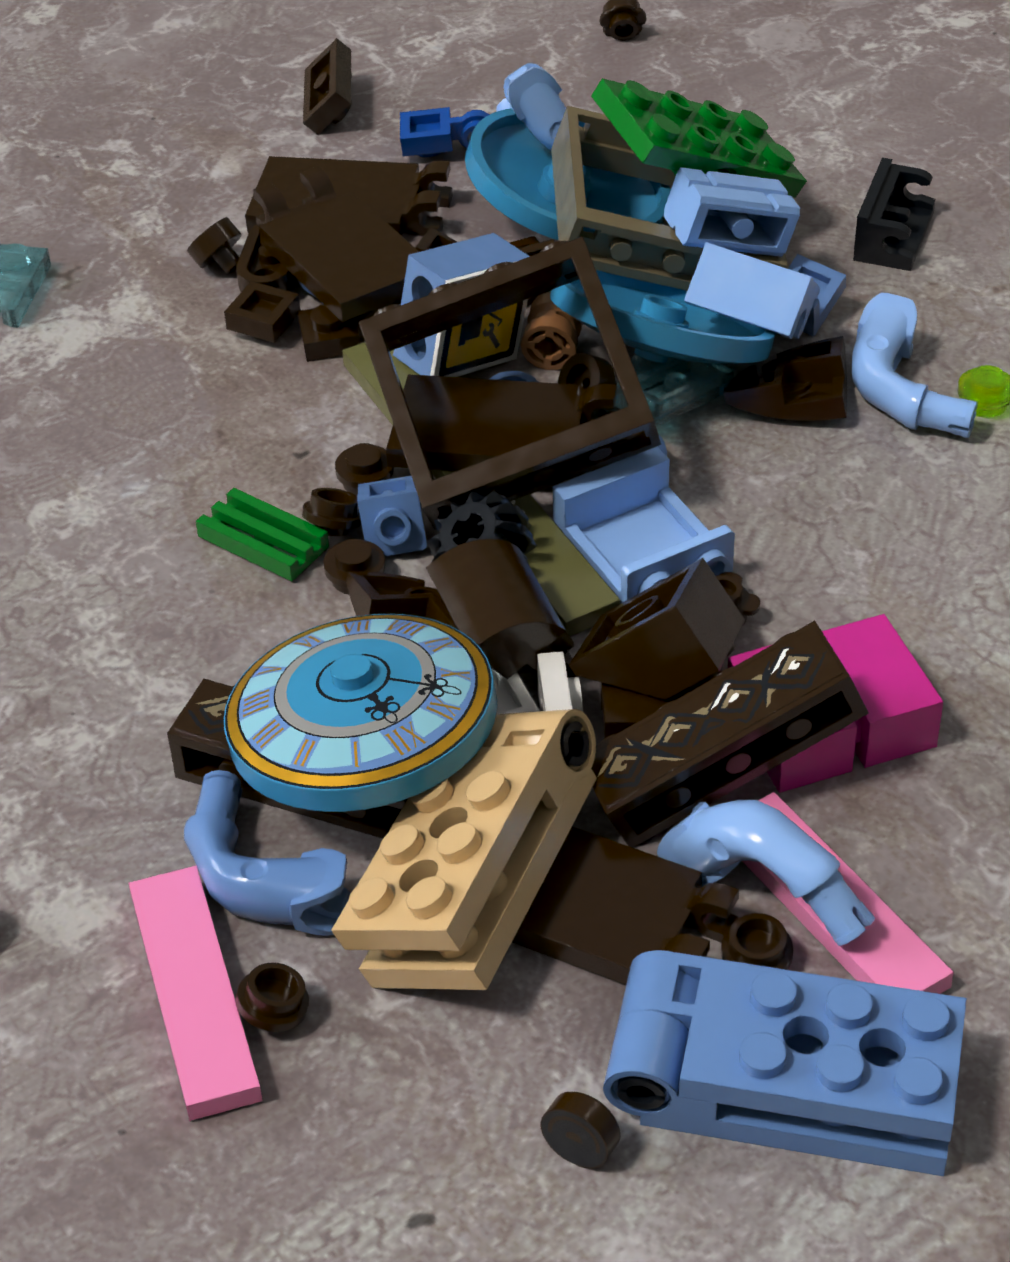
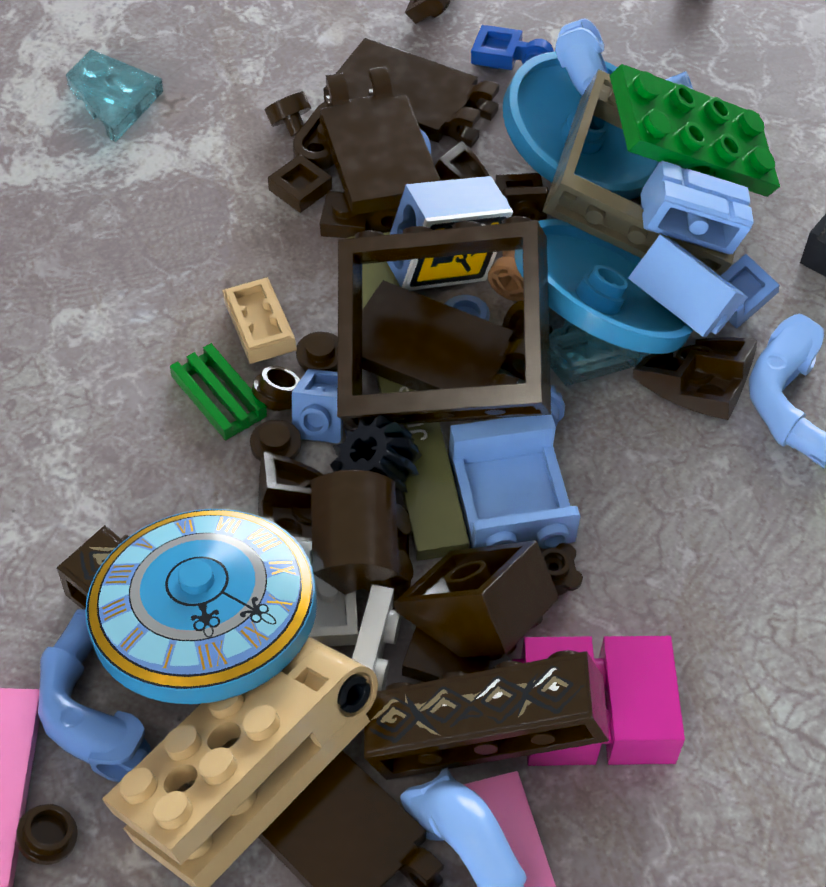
camera: 15 degrees right, 10 degrees up
(279, 452) = (259, 320): none -> tan plate

